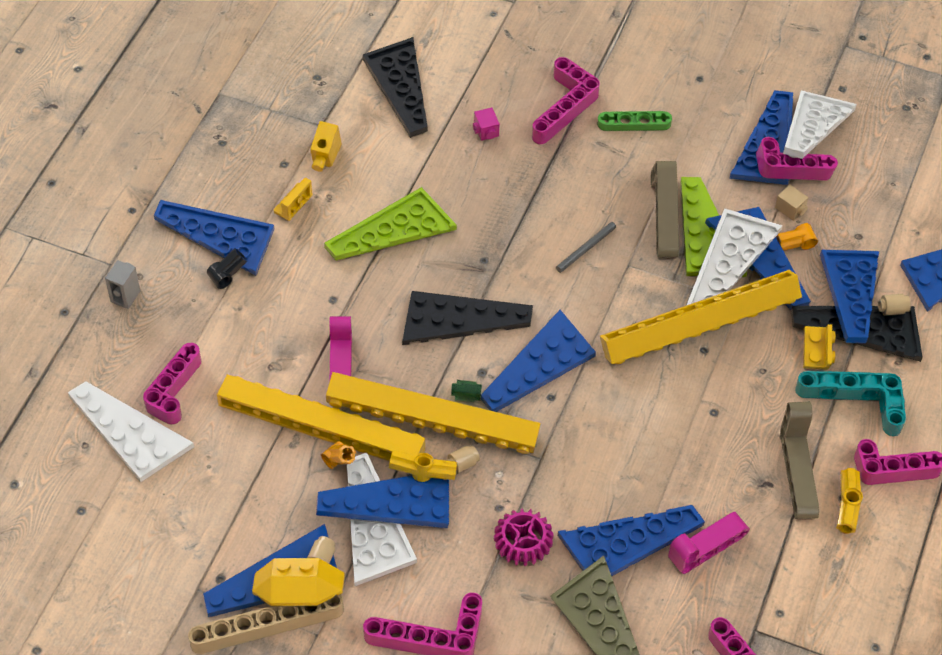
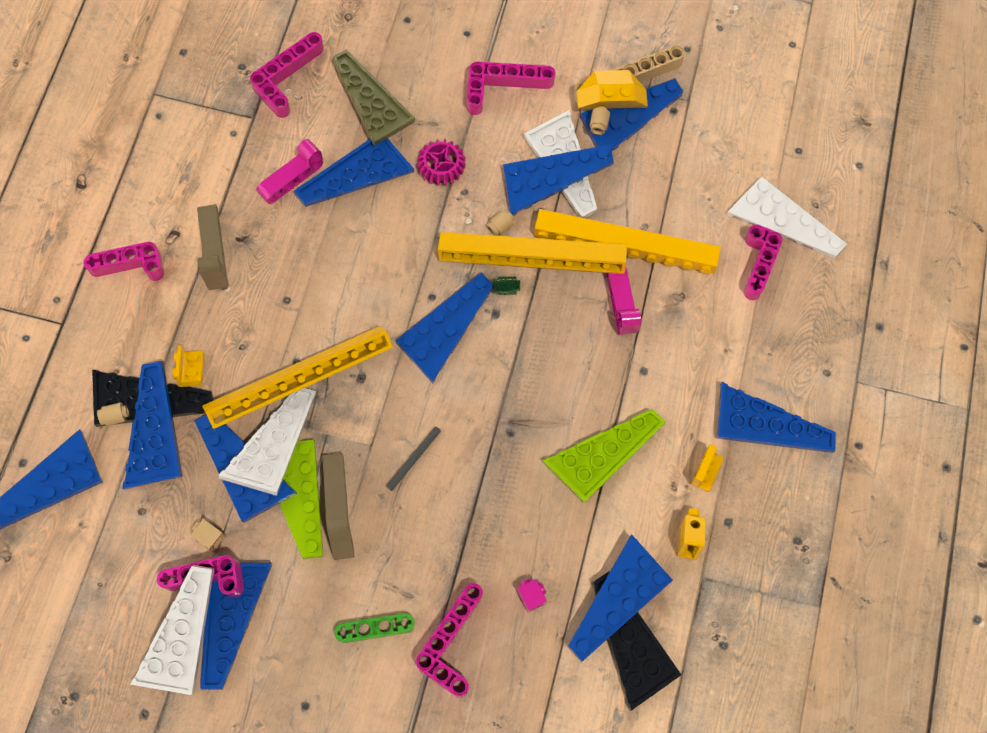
camera: 170 degrees right, 15 degrees up
(122, 284) = (837, 344): light grey brick -> none
(222, 272) = (749, 379): black piece -> none
(338, 455) = (605, 209): light orange piece -> none
(399, 113) = (627, 589): none -> blue wing
(423, 466) = (544, 200): yellow piece -> none
(456, 316) = (534, 363): black wing -> none
(802, 237) = (199, 494): light orange piece -> none
(849, 510) = (169, 234): yellow piece -> none
(860, 387) = (150, 334): teal beam -> none

